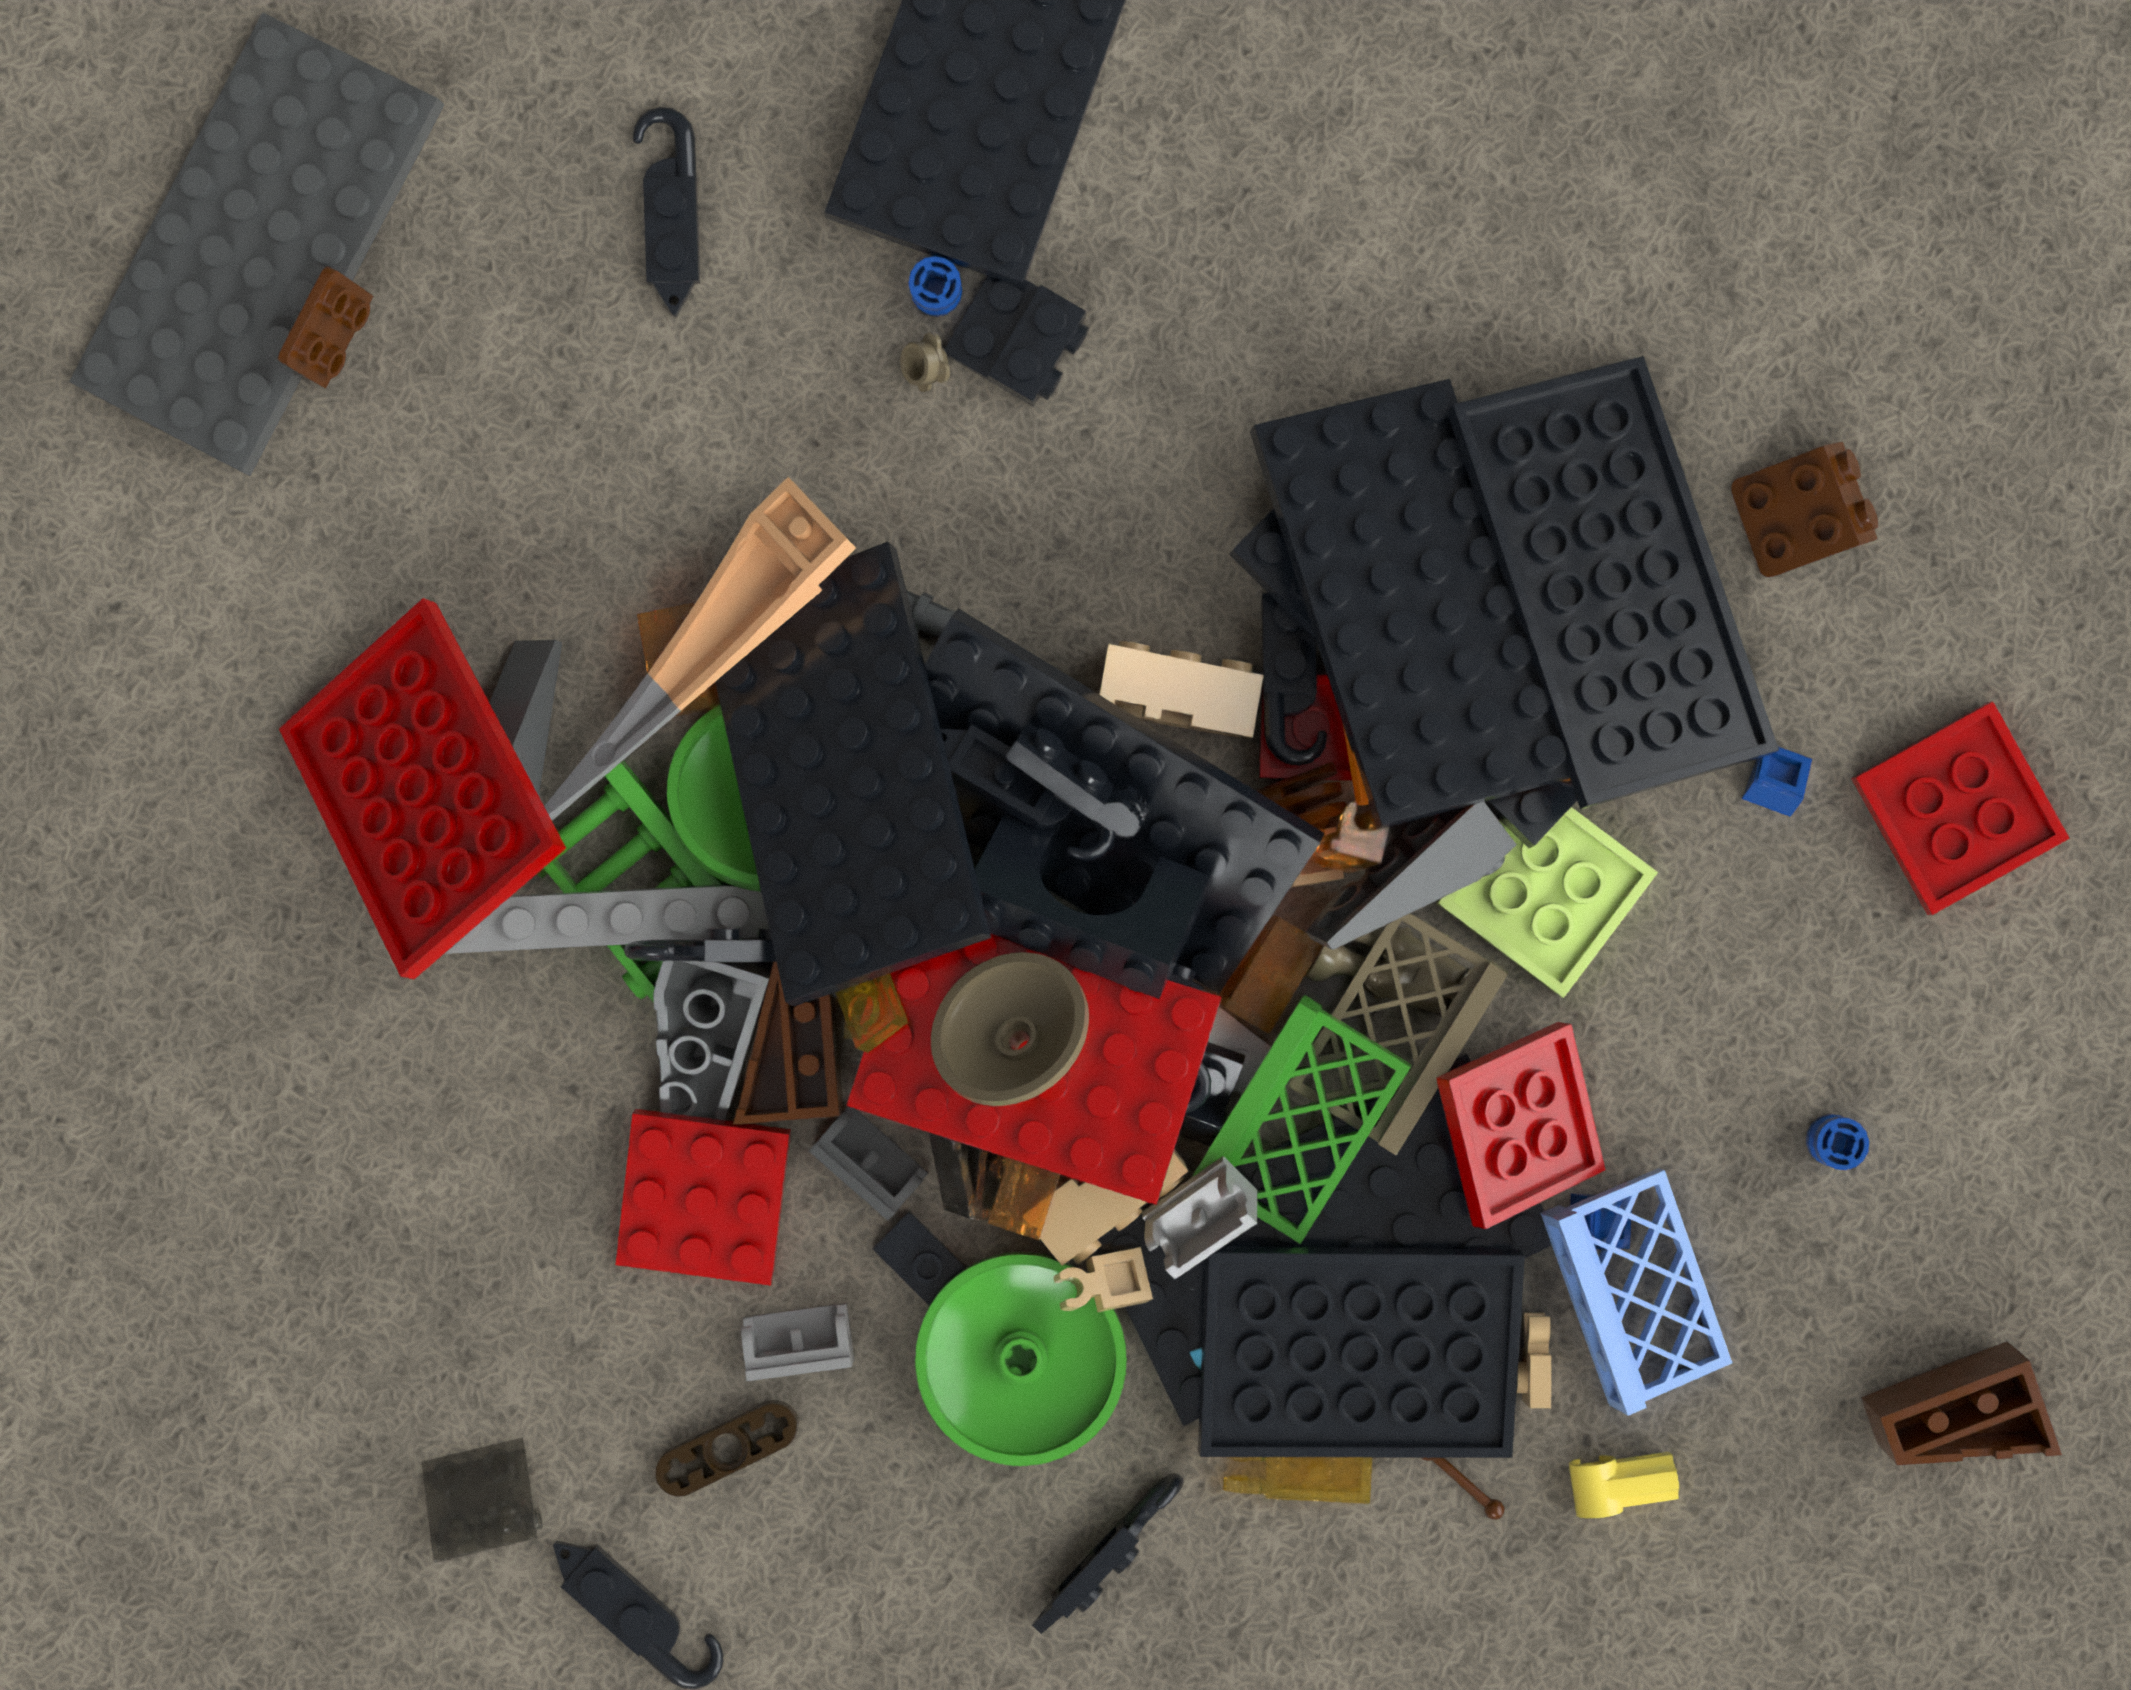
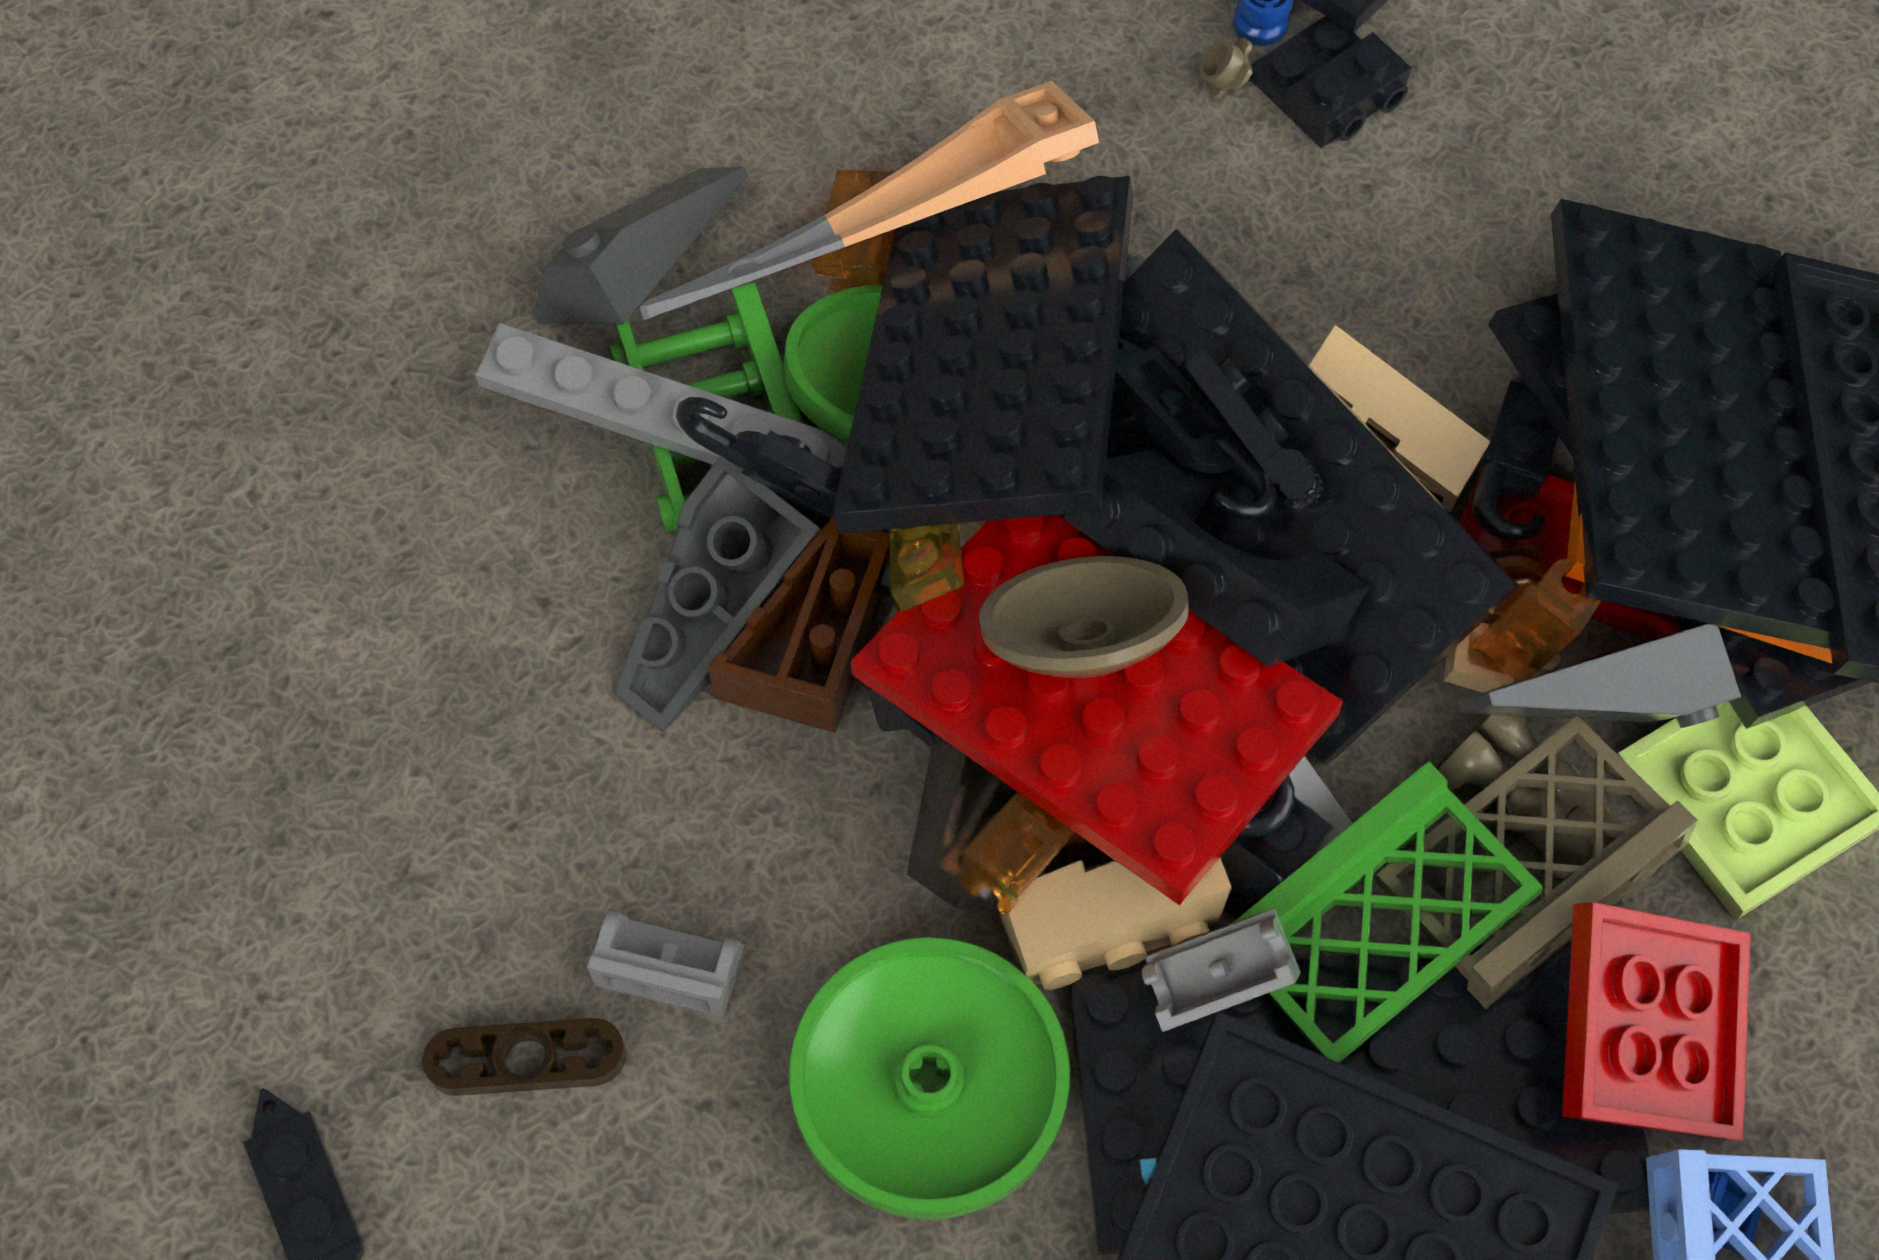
camera: 20 degrees right, 25 degrees down
(420, 789) = (538, 216): red plate -> none
(479, 1500) = (203, 1002): clear smoke hinge -> none
(702, 1197) = (634, 758): red plate -> none
(868, 1162) = (839, 791): dark grey hinge -> none
(918, 1257) = (849, 916): black plate -> none
(1112, 1279) = (1080, 1014): tan plate -> none
(1269, 973) = (1393, 751): clear orange hinge -> none

